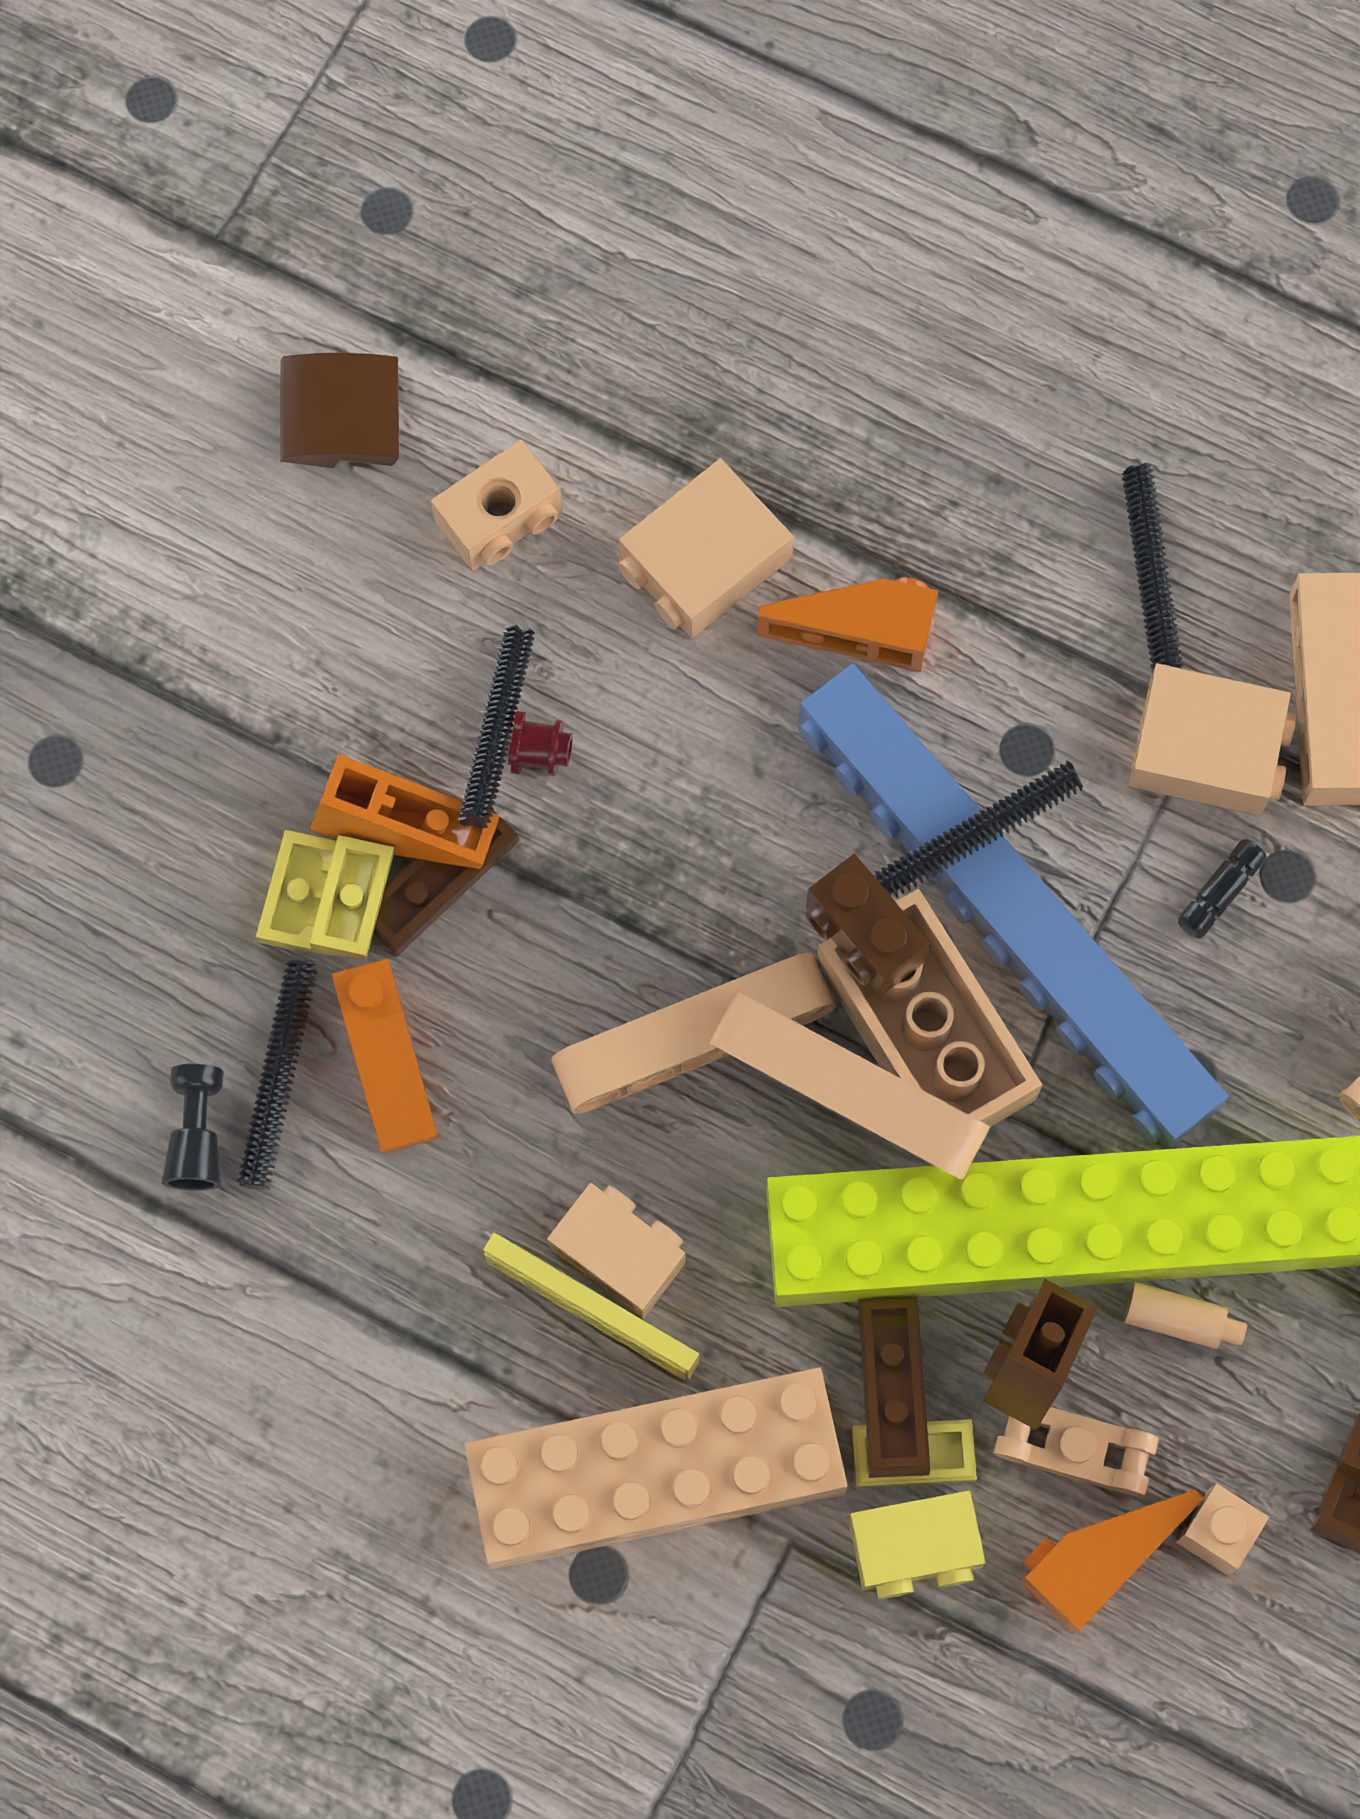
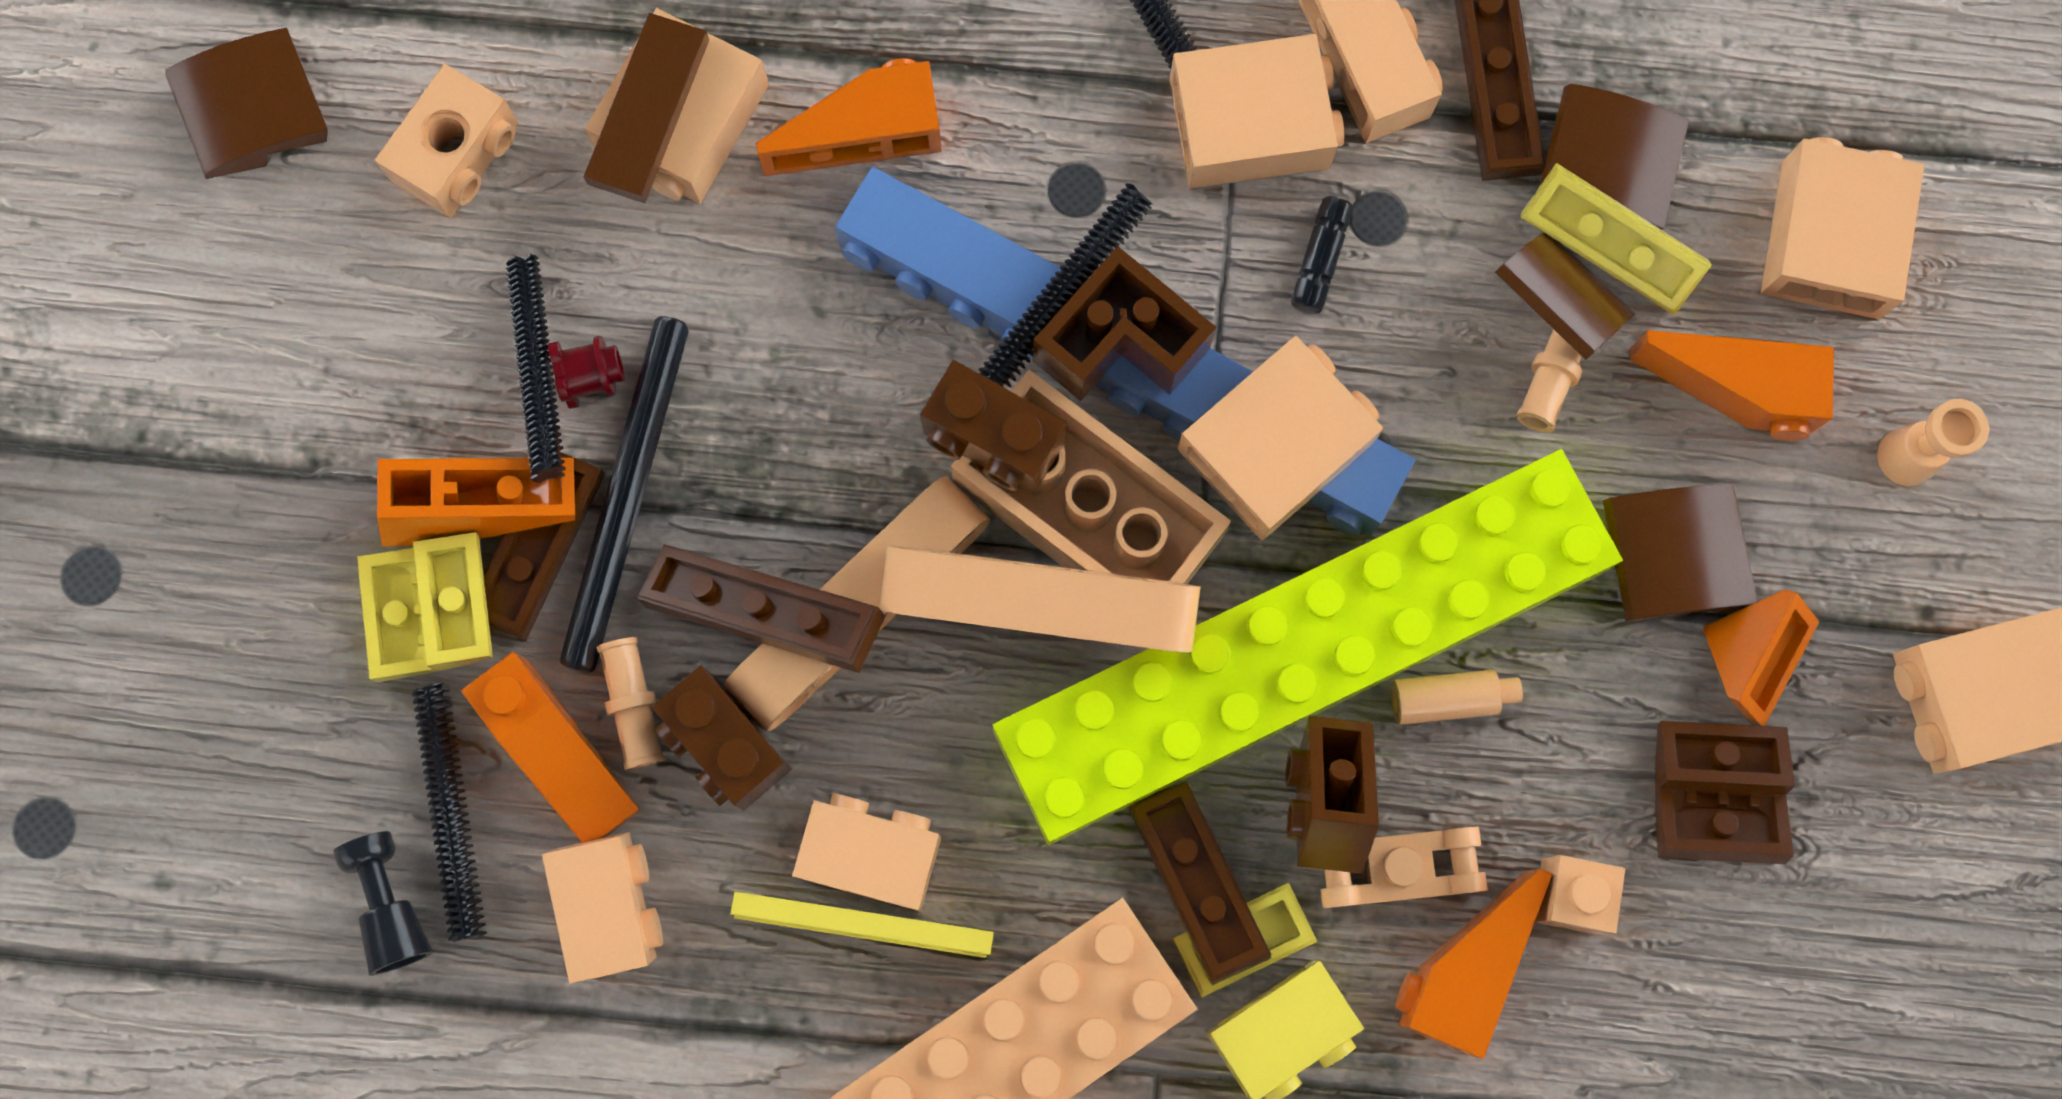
camera: 25 degrees left, 5 degrees up
(377, 1202) = (602, 907): none -> light nougat brick
(466, 1043) = (630, 703): none -> light nougat pin
(529, 864) = (624, 495): none -> black axle
(533, 1102) = (721, 738): none -> reddish brown brick
(609, 1003) = (762, 608): none -> reddish brown tile
(678, 541) = (646, 108): none -> reddish brown tile
(1015, 871) = (1123, 314): none -> reddish brown brick
(1114, 1028) = (1280, 436): none -> light nougat brick

